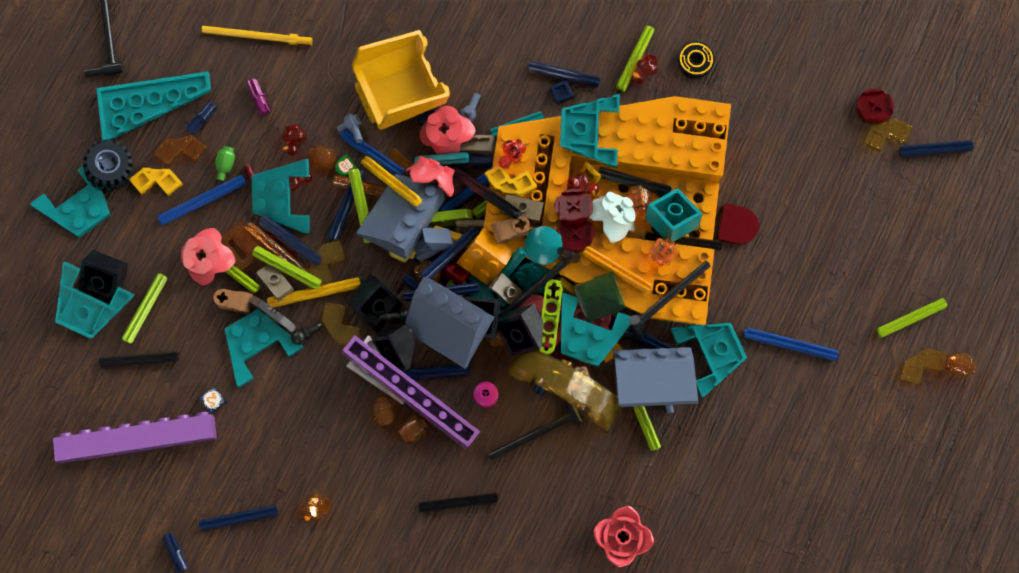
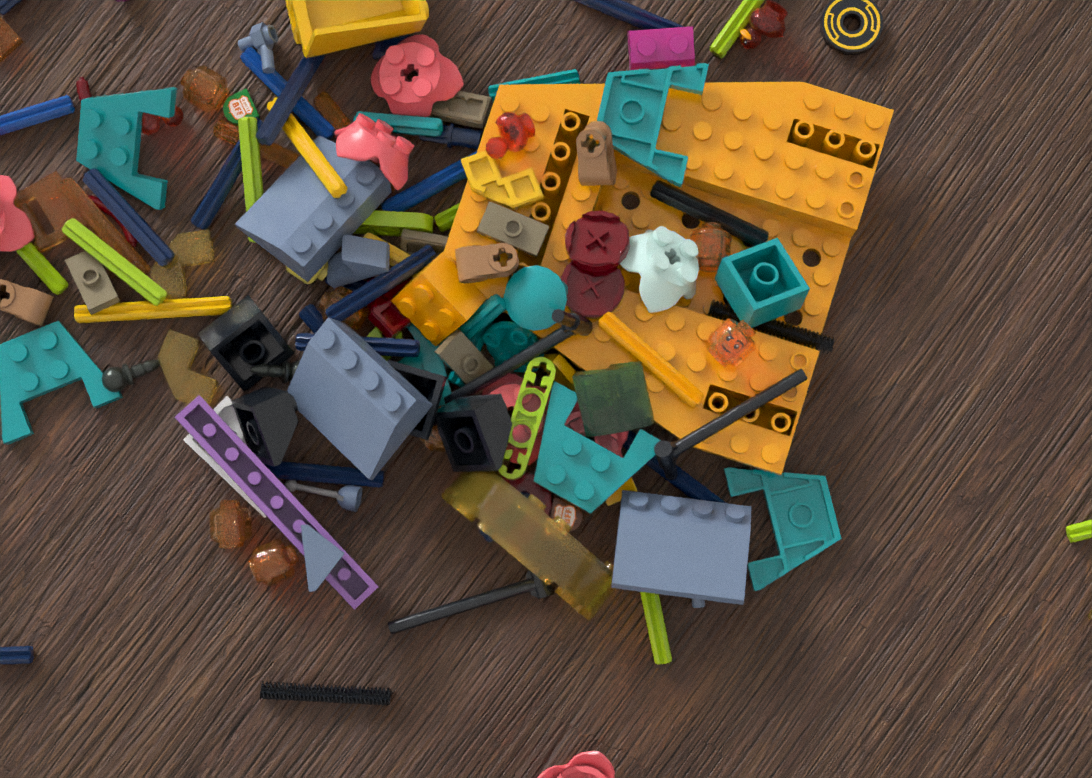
camera: 15 degrees right, 5 degrees up
(224, 162) = (45, 69): bright green plant -> none
(278, 317) = (78, 334): flat silver tile -> none
(291, 136) = (163, 42): clear red animal -> none
(315, 507) = (93, 661): clear orange animal -> none
(374, 155) = (288, 99): none -> dark blue axle
(442, 417) = (319, 556): none -> sand blue slope
(450, 383) = (348, 497): none -> hinge
(469, 111) = (459, 50): sand blue piece -> none
(485, 192) = (456, 192): black axle -> none
(487, 401) = (412, 525): dark pink head -> none
(561, 92) = (615, 42): dark blue tile -> none
(564, 160) = (595, 160): none -> medium nougat piece
(581, 181) = (618, 201): clear red animal -> none
(588, 90) = (661, 48): none -> dark pink slope
(592, 174) = (636, 190): yellow slope -> none
(737, 225) = (868, 314): dark red tile -> none
(791, 344) = (919, 527): blue axle -> none

